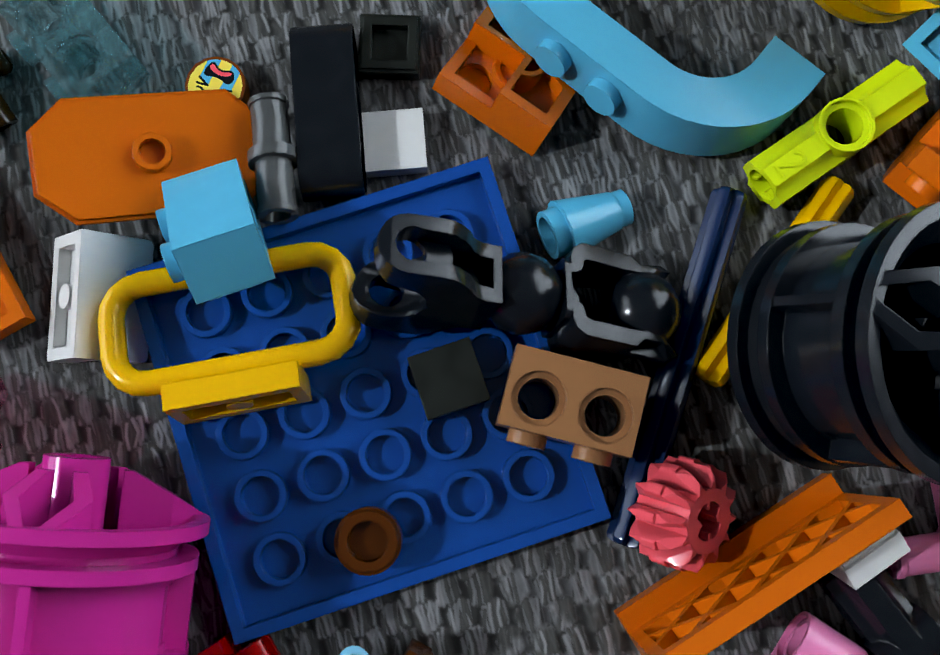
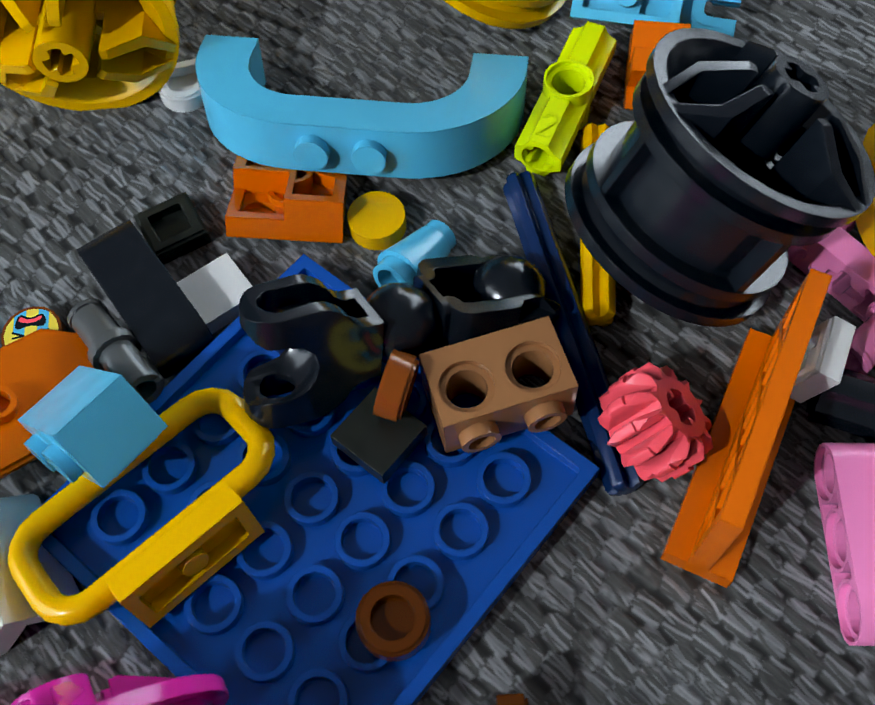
camera: 25 degrees left, 20 degrees down
(483, 358) = (396, 386): none -> dark orange tile
(576, 154) = (376, 220): none -> yellow tile

